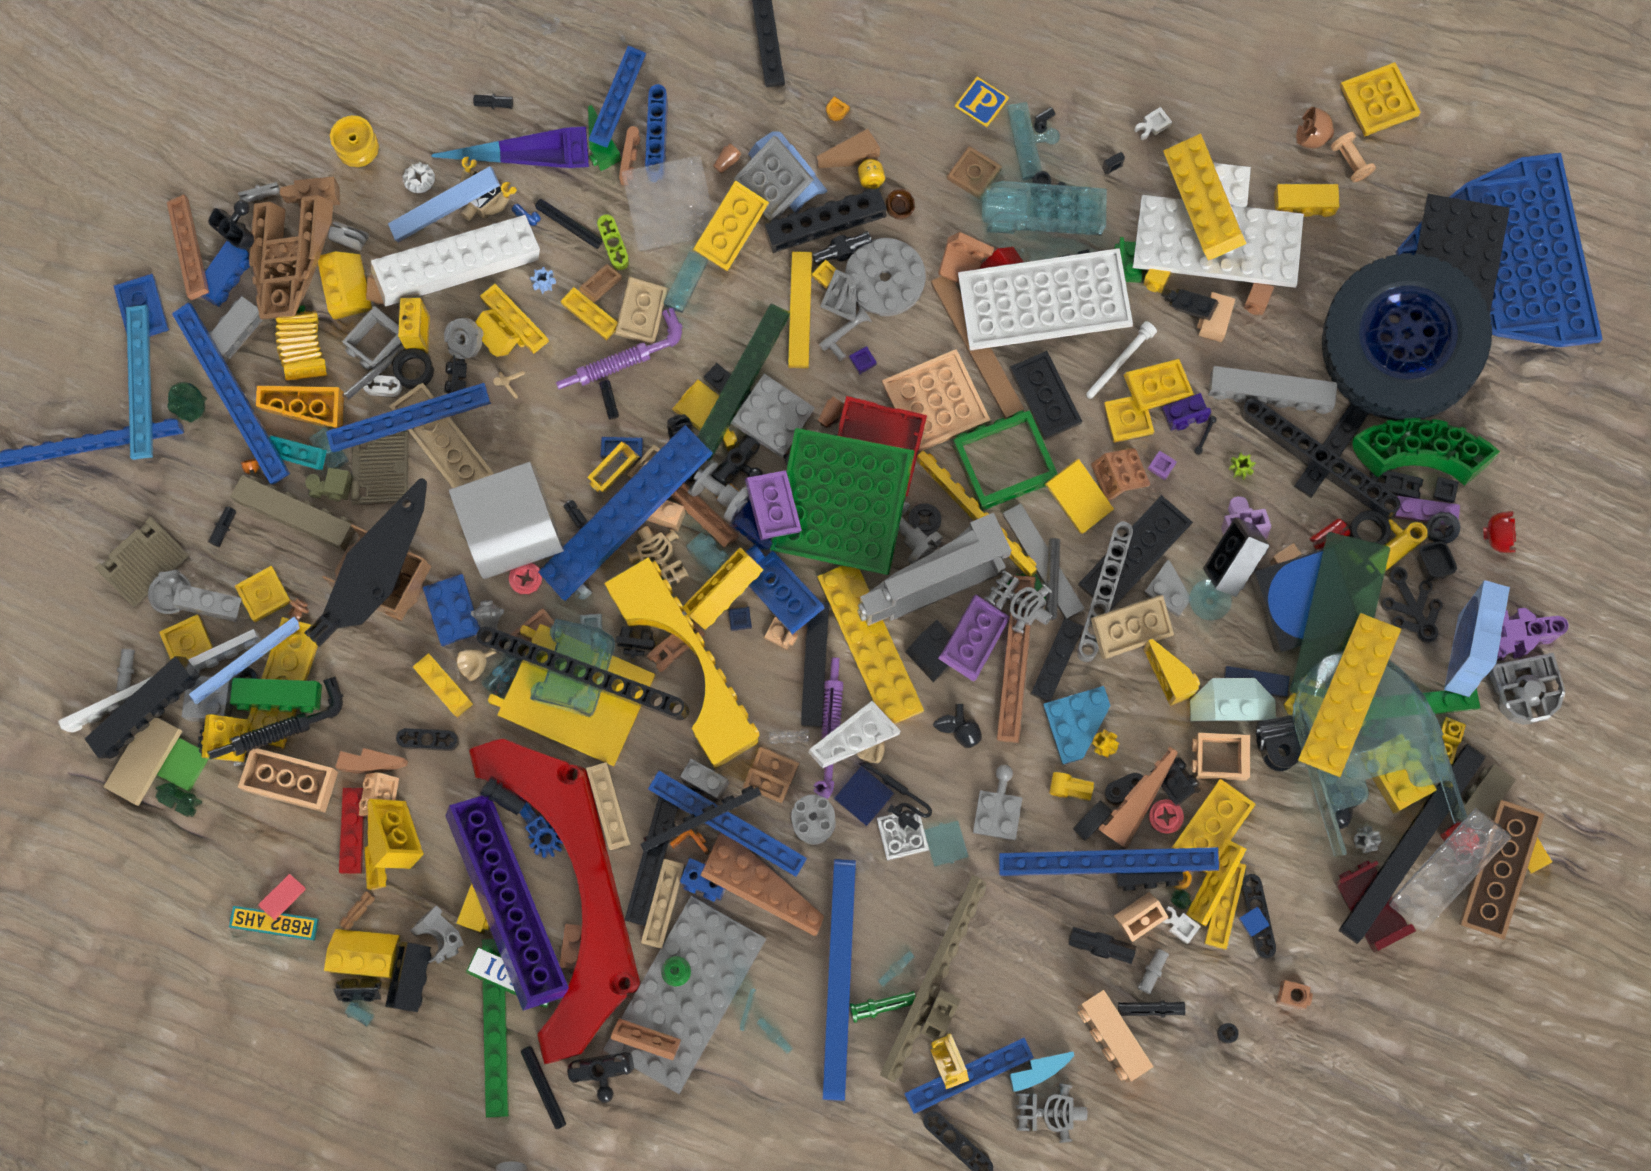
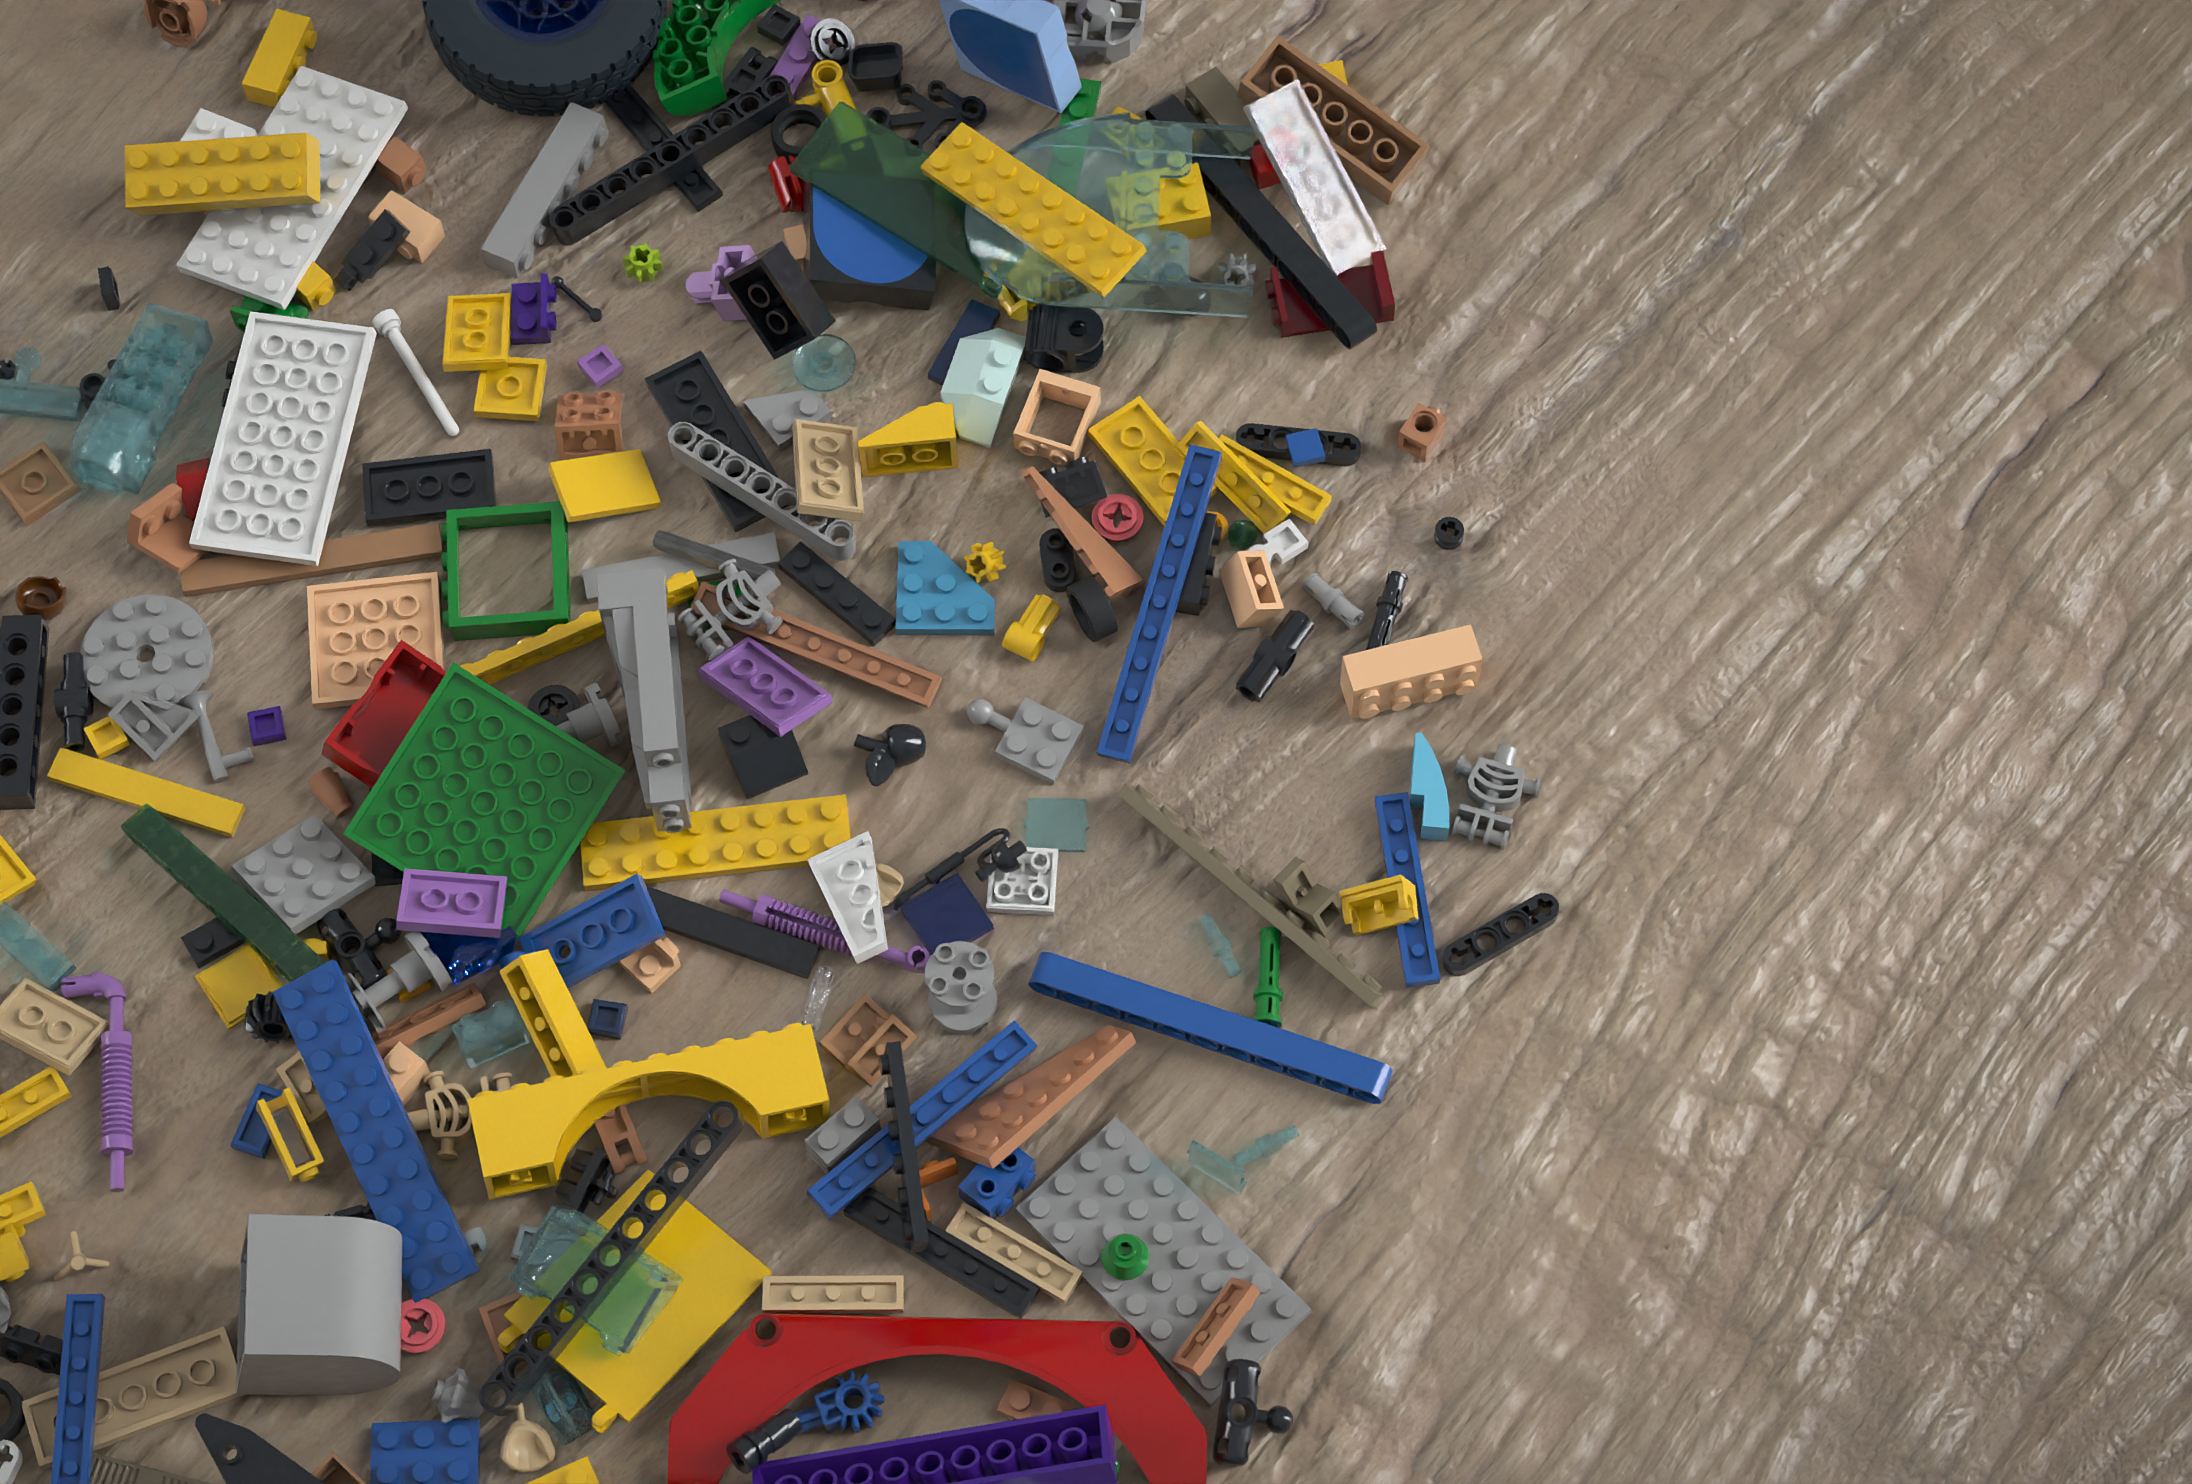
camera: 75 degrees left, 10 degrees down
(609, 399) = (172, 1117): black axle -> none
(1155, 122) = (70, 217): white plate -> none

